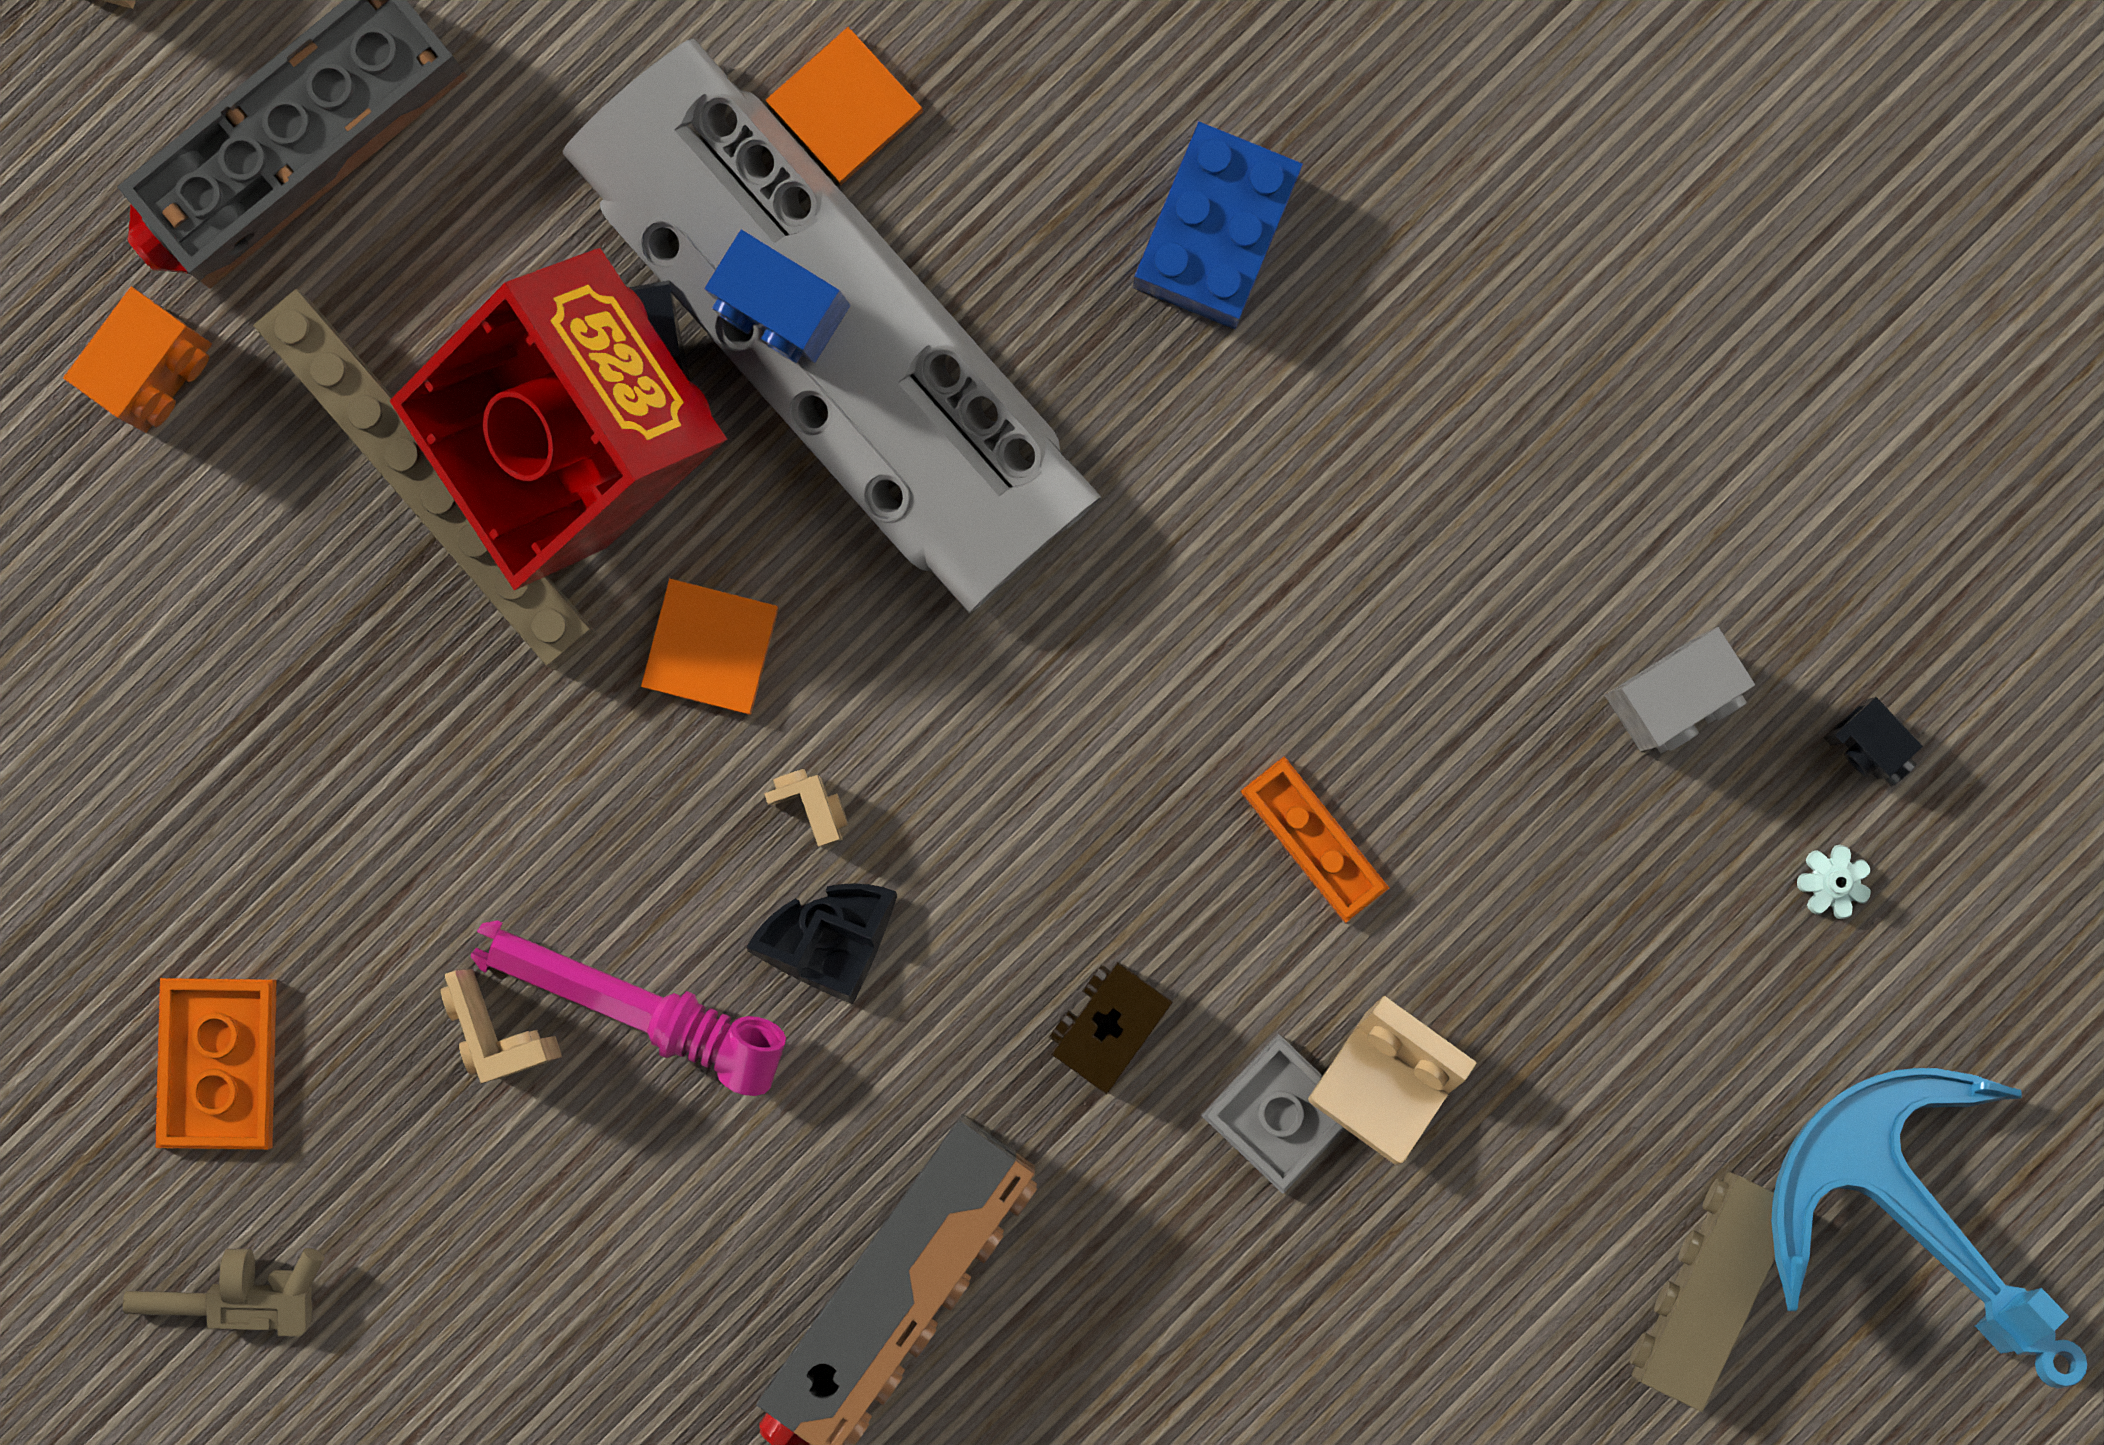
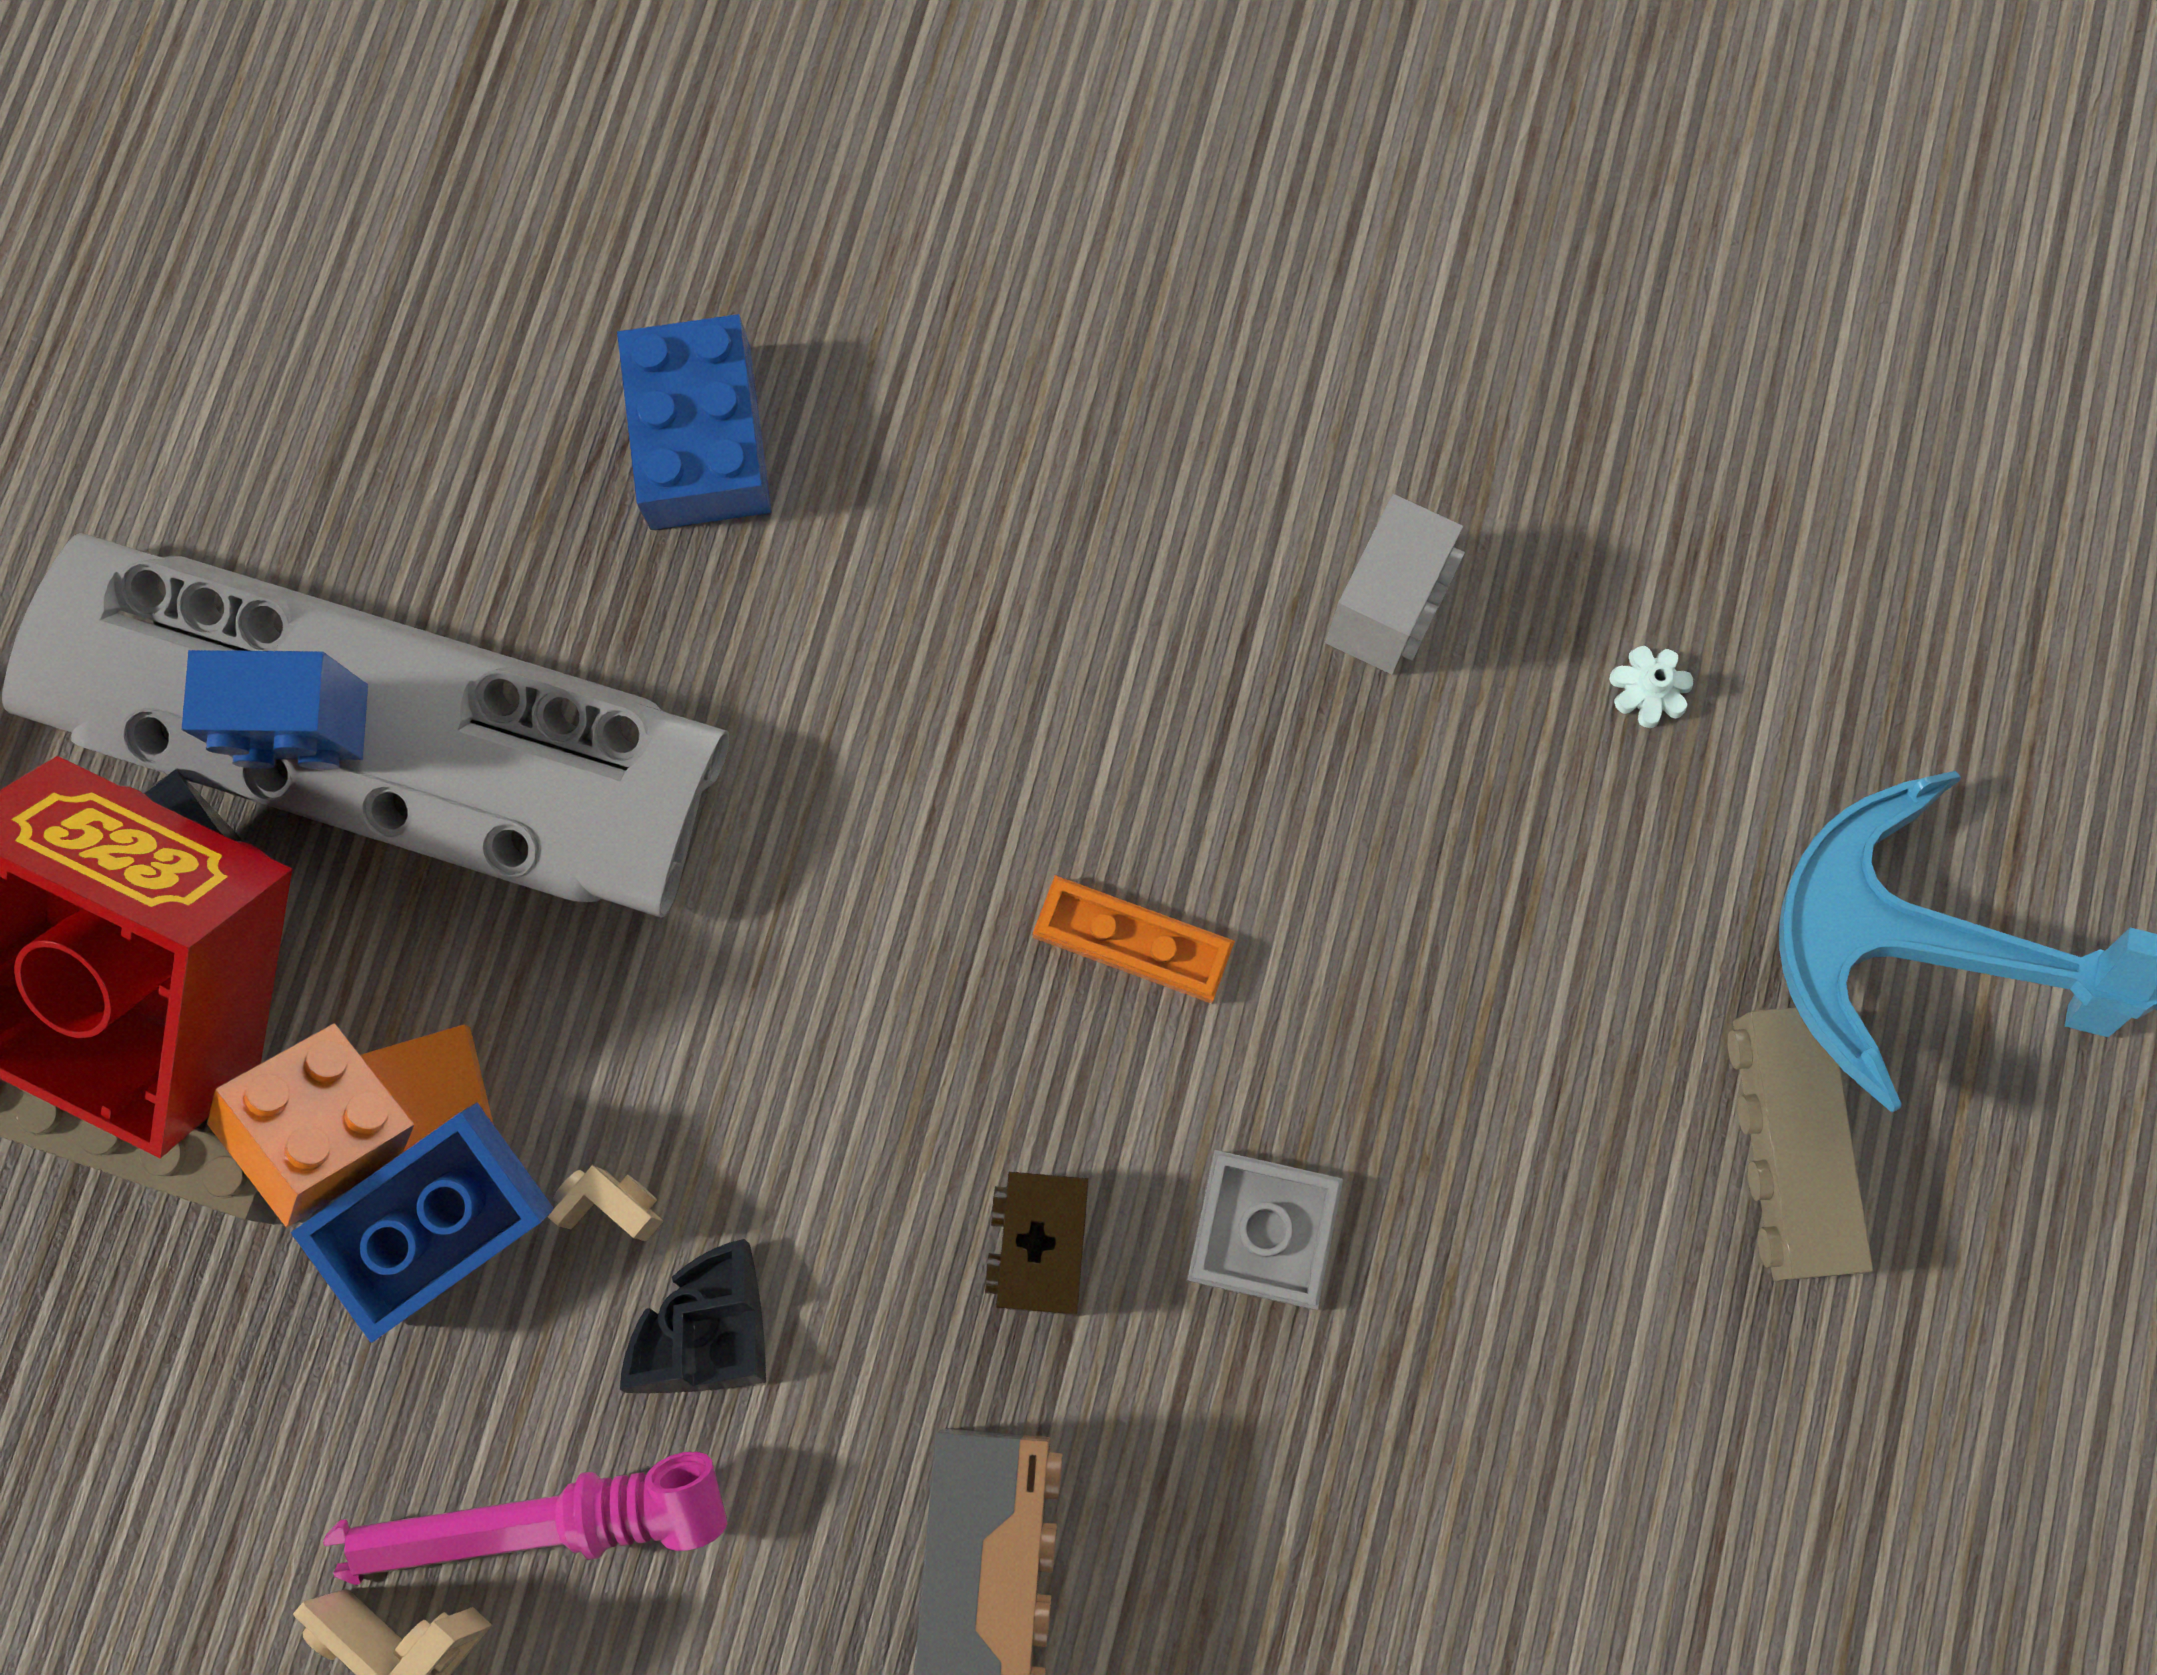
camera: 30 degrees left, 10 degrees down
(631, 625) = (309, 1124): none -> orange brick
(674, 743) = (423, 1222): none -> blue brick
(844, 106) = (273, 519): orange tile -> none
(1390, 1080) = (1353, 1125): tan bracket -> none
(1876, 742) = (1605, 531): black brick -> none

